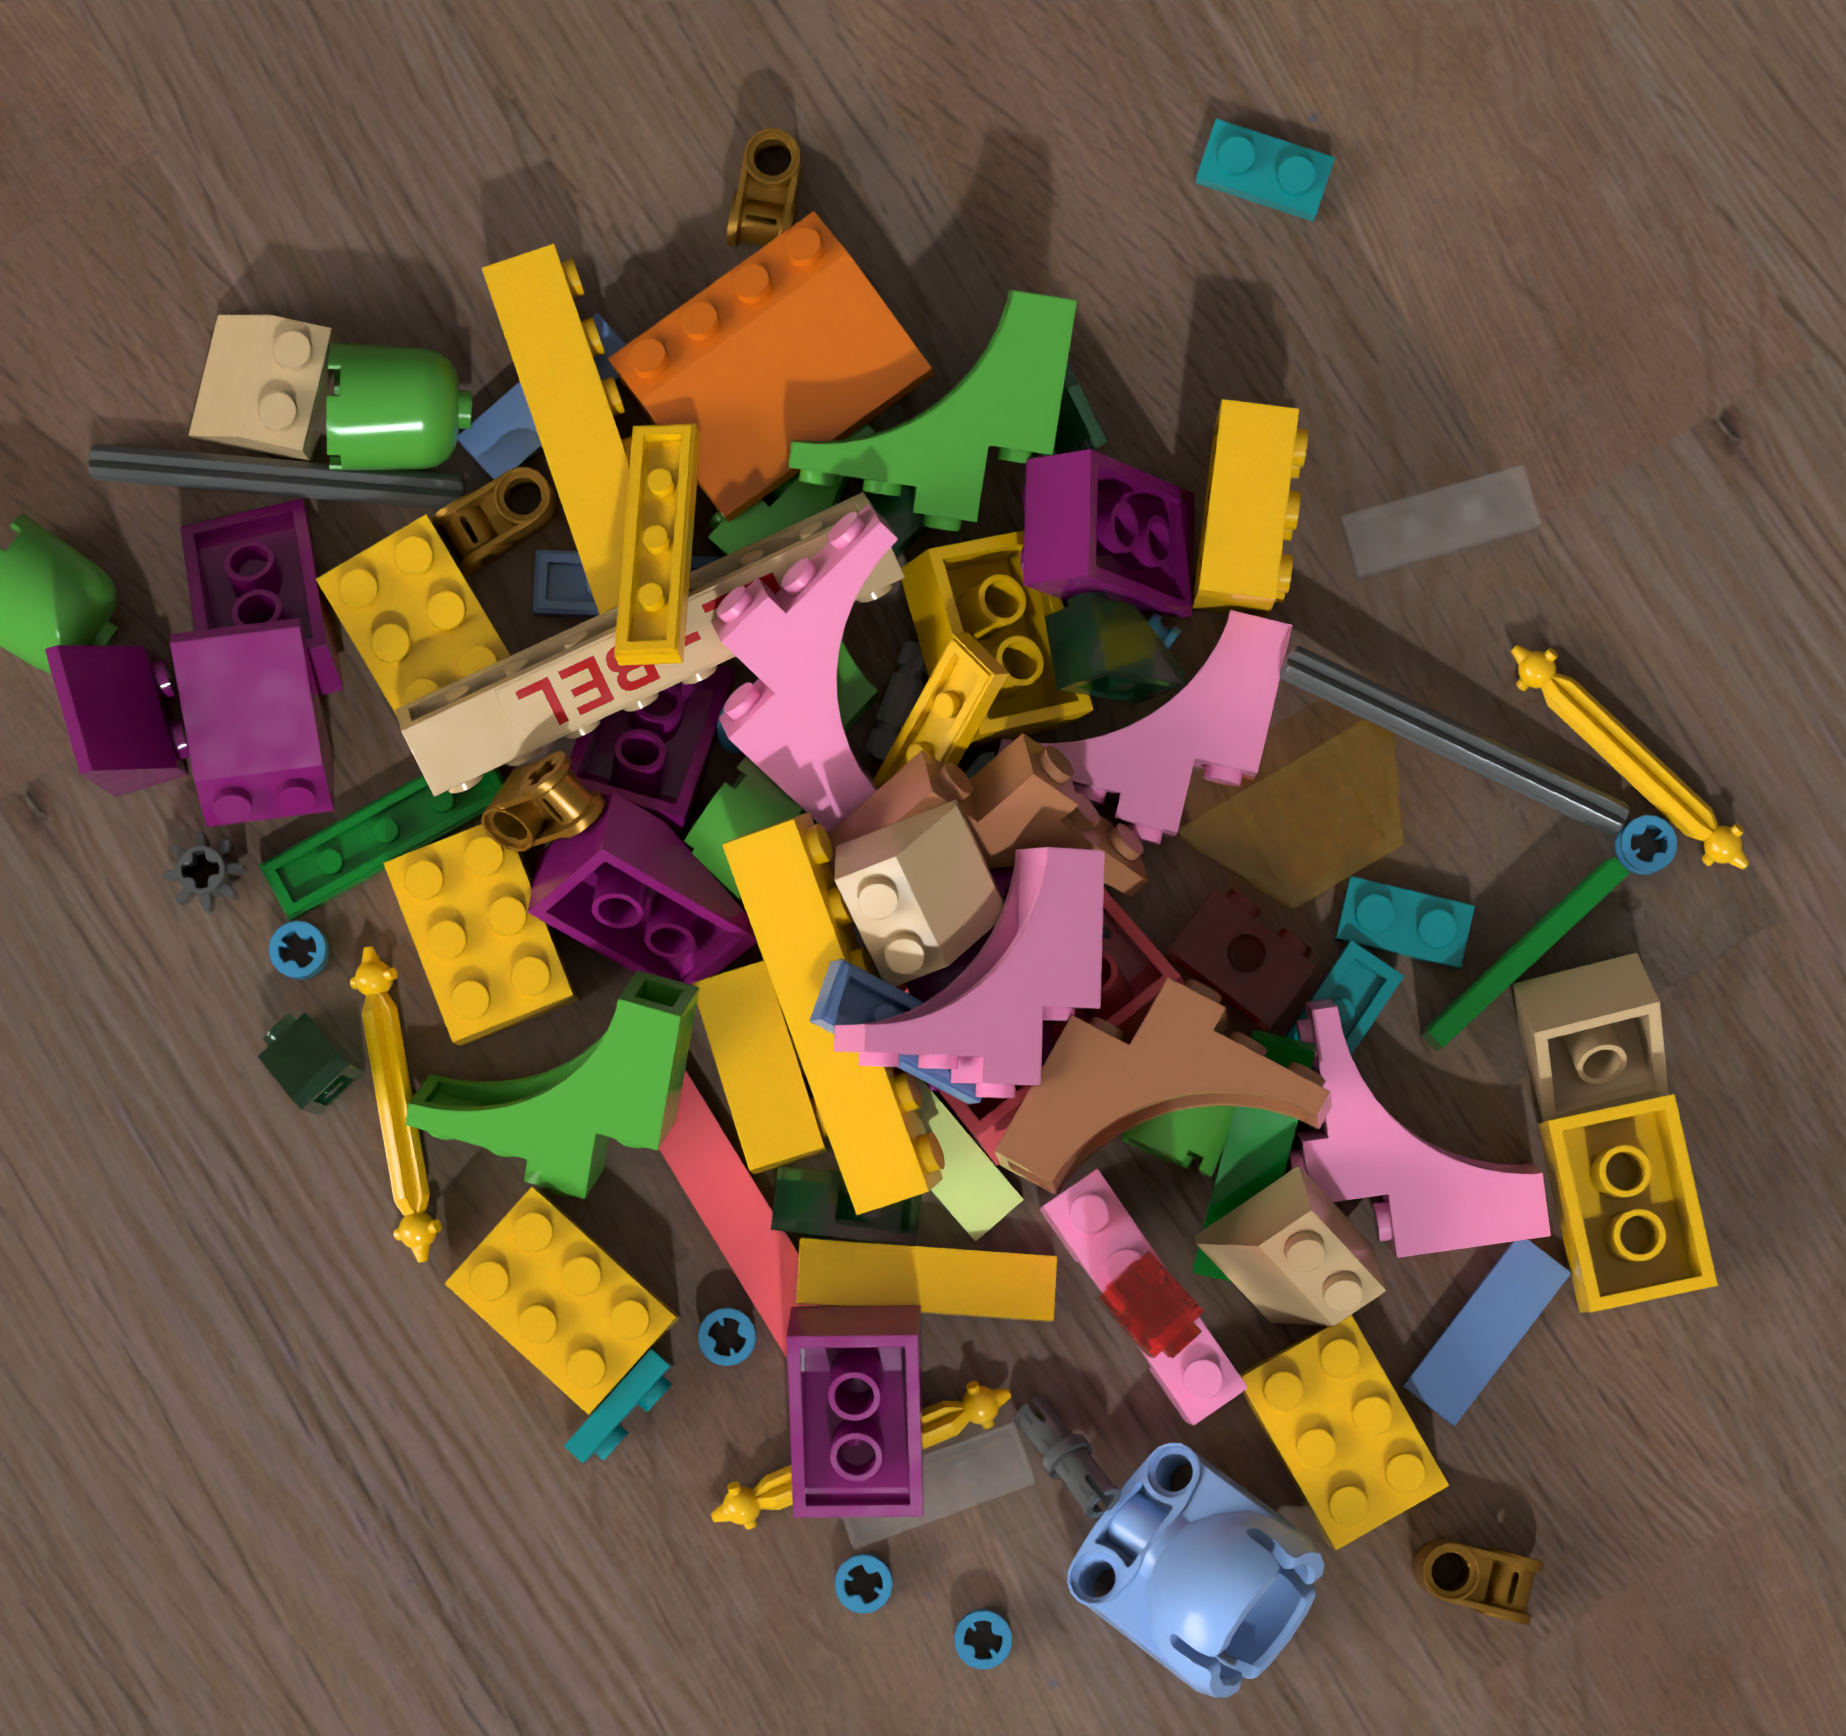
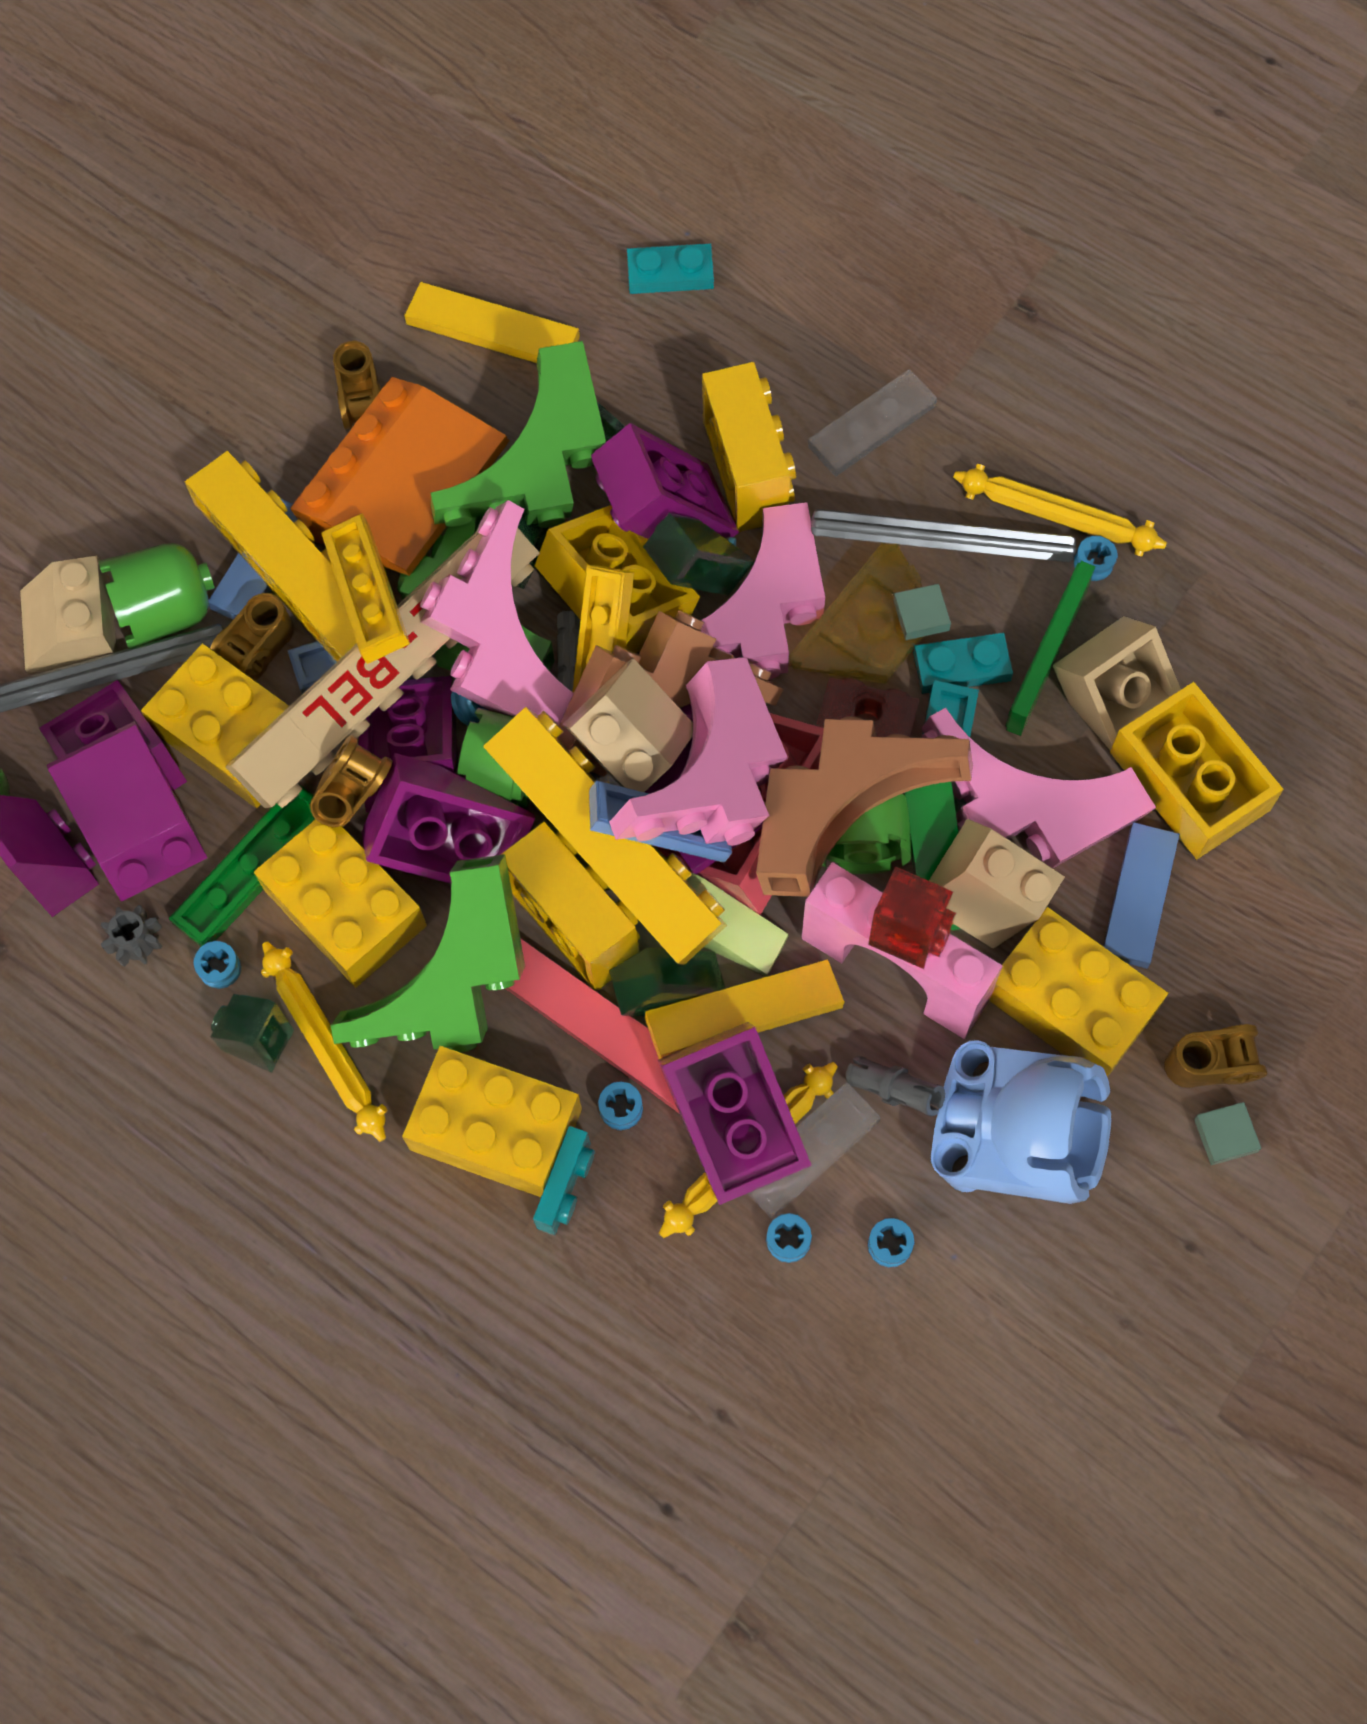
camera: 20 degrees left, 15 degrees down
(985, 163) = (485, 323): none -> yellow tile
(1376, 841) = (922, 611): none -> sand green tile
(1449, 1673) = (1227, 1133): none -> sand green tile

